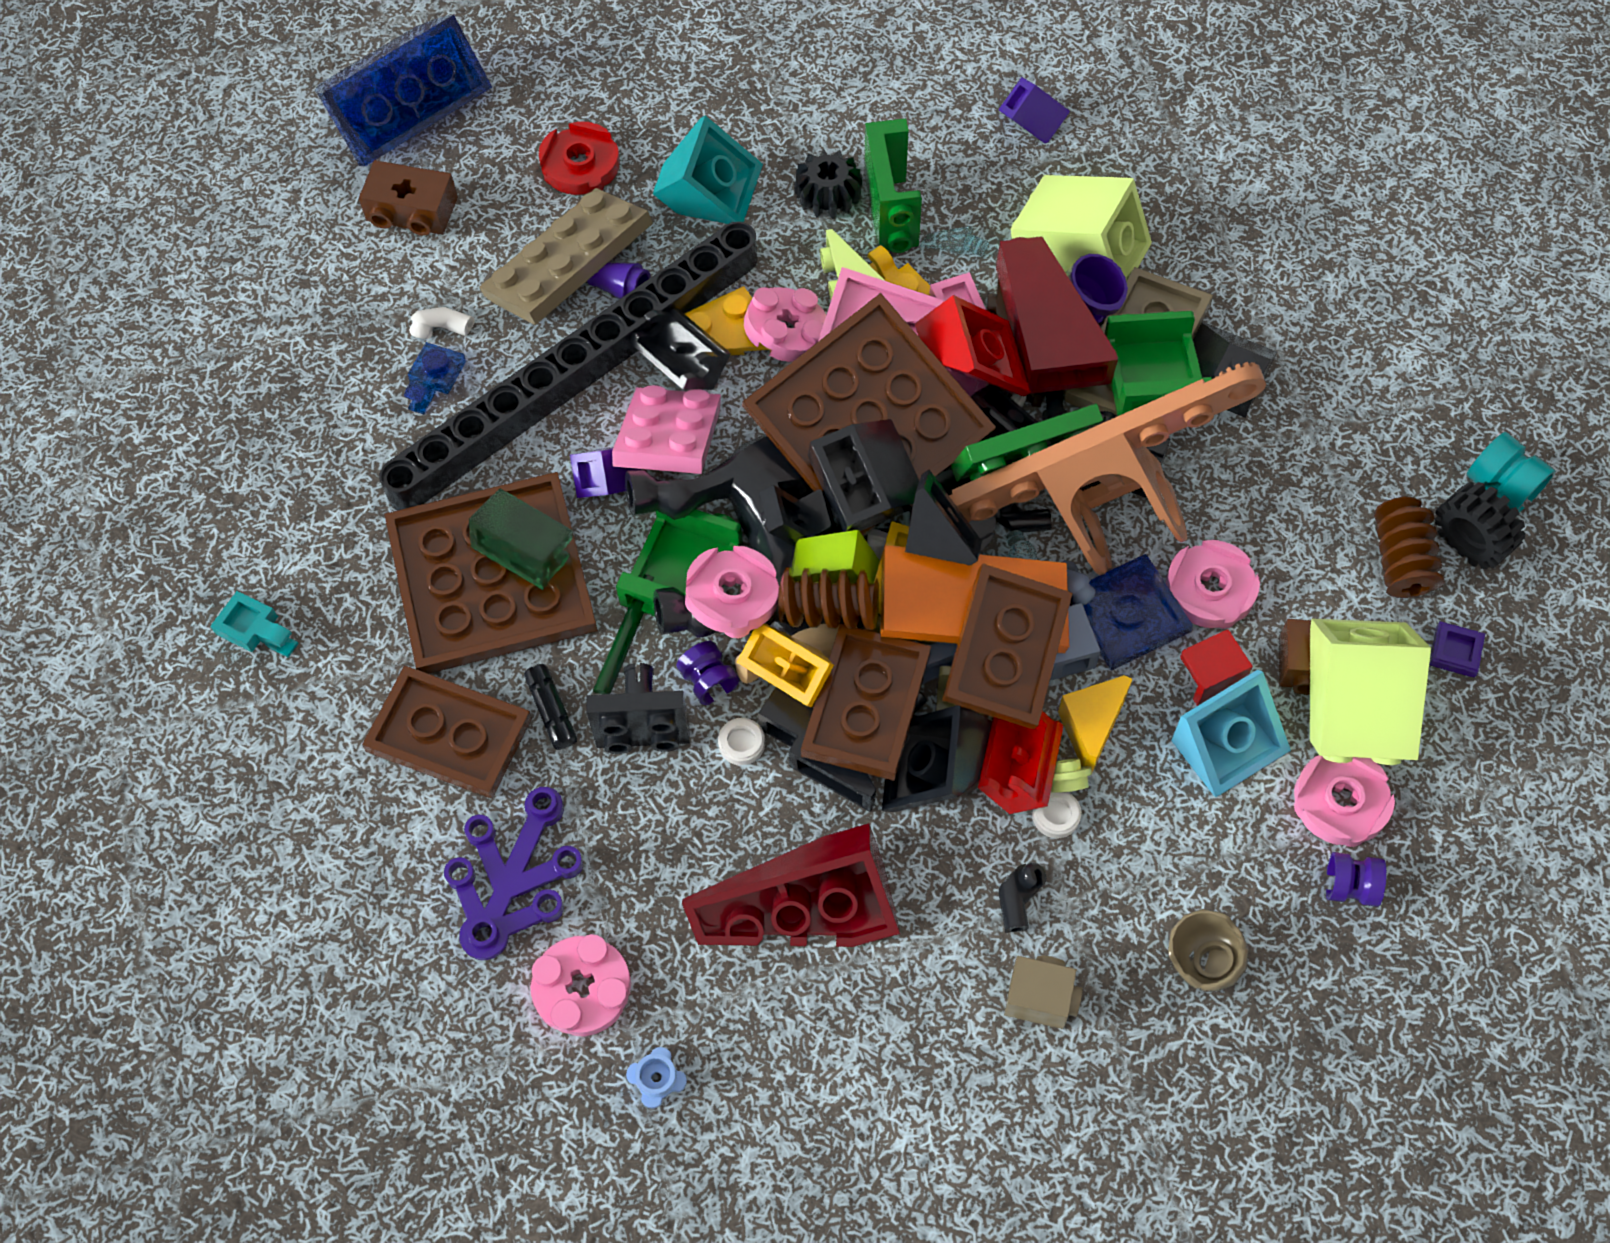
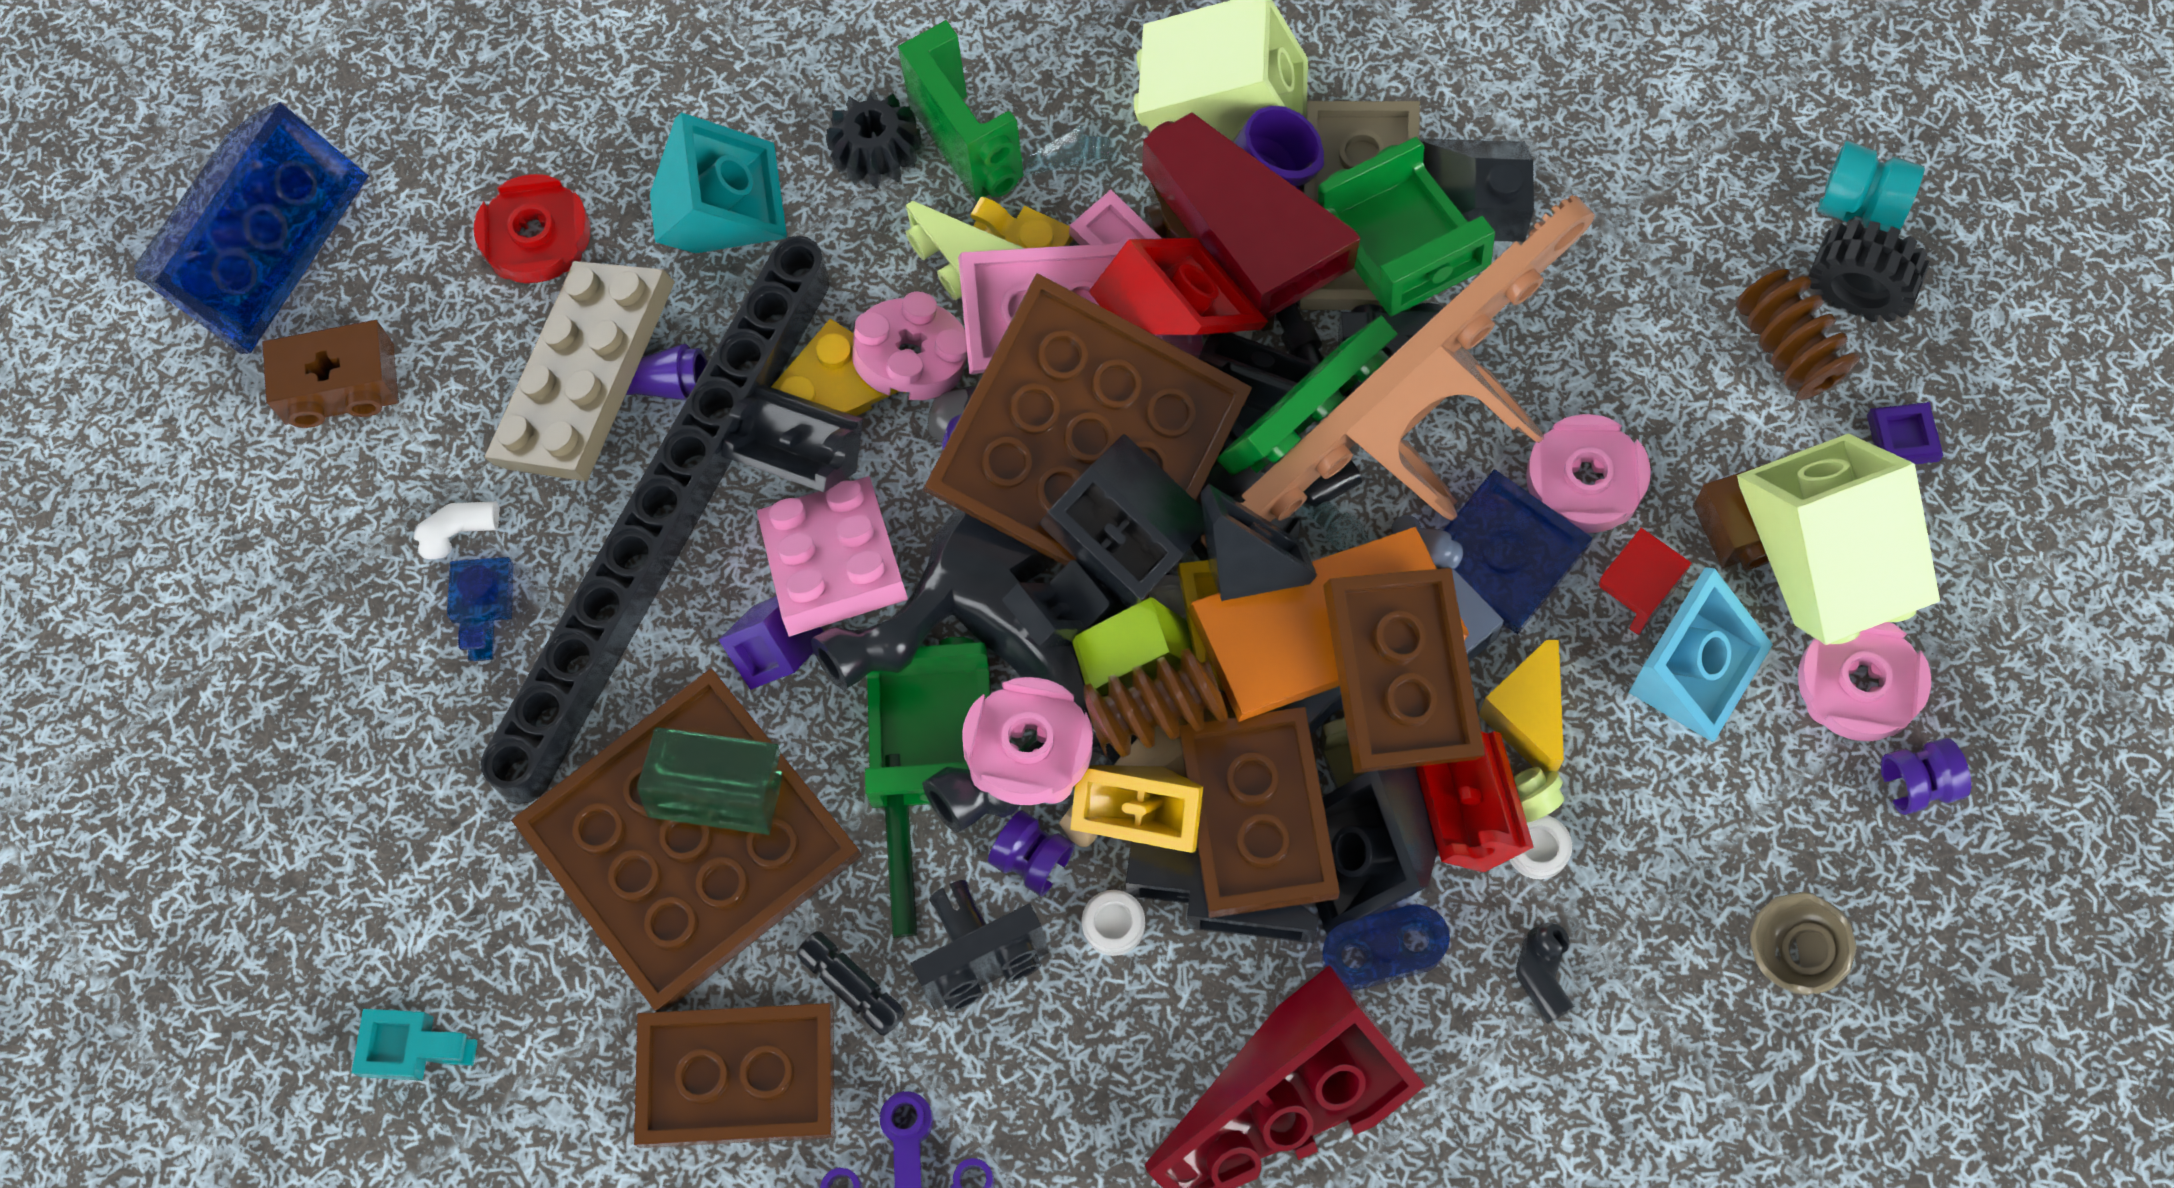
camera: 20 degrees left, 5 degrees up
(916, 828) = (1383, 945): none -> clear blue plate
(1043, 991) = (1632, 1082): dark tan brick -> none

